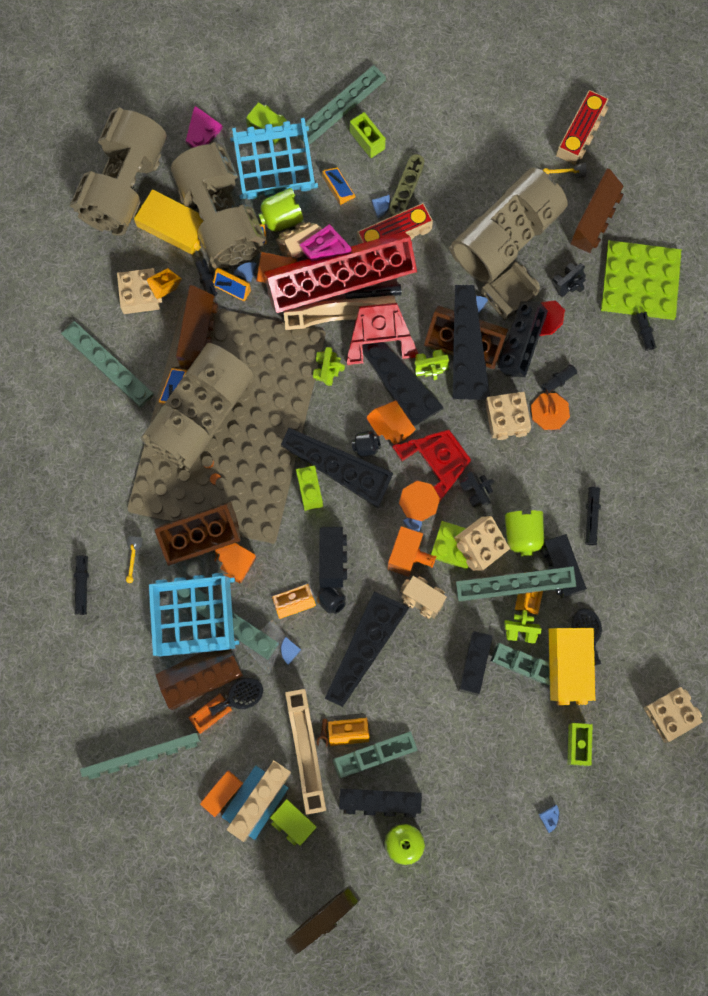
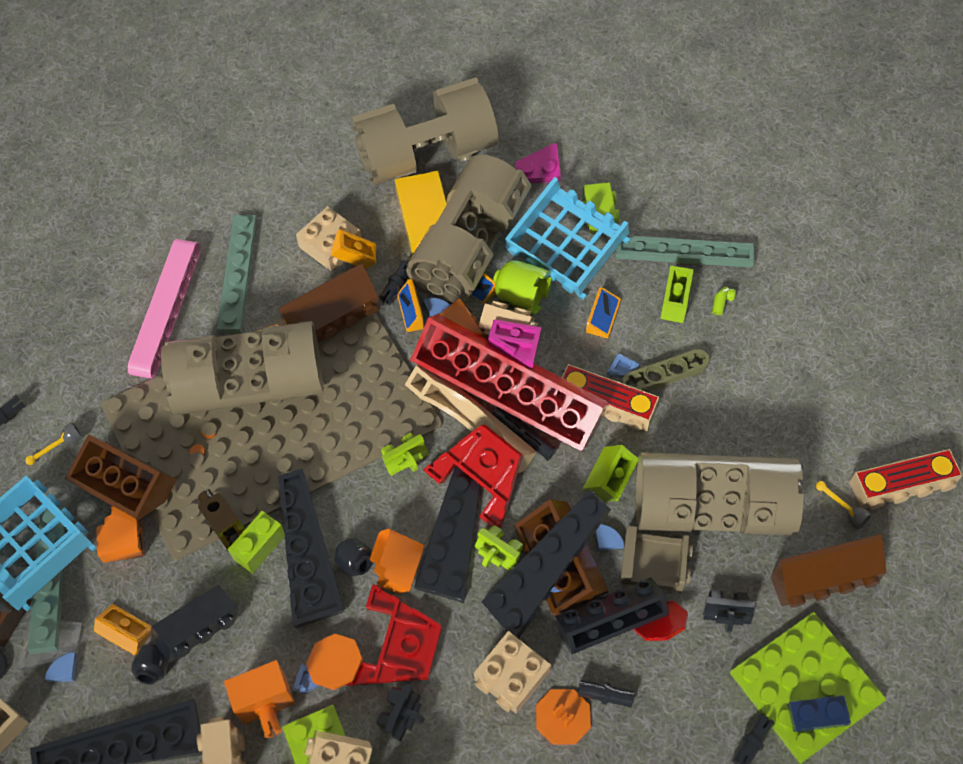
camera: 50 degrees right, 15 degrees down
(93, 424) = (164, 308): none -> bright pink beam
(288, 494) = (220, 517): none -> dark brown torso
(389, 112) = (720, 300): none -> lime arm
(443, 268) = (611, 473): none -> lime brick
(662, 286) = (819, 713): none -> dark blue plate

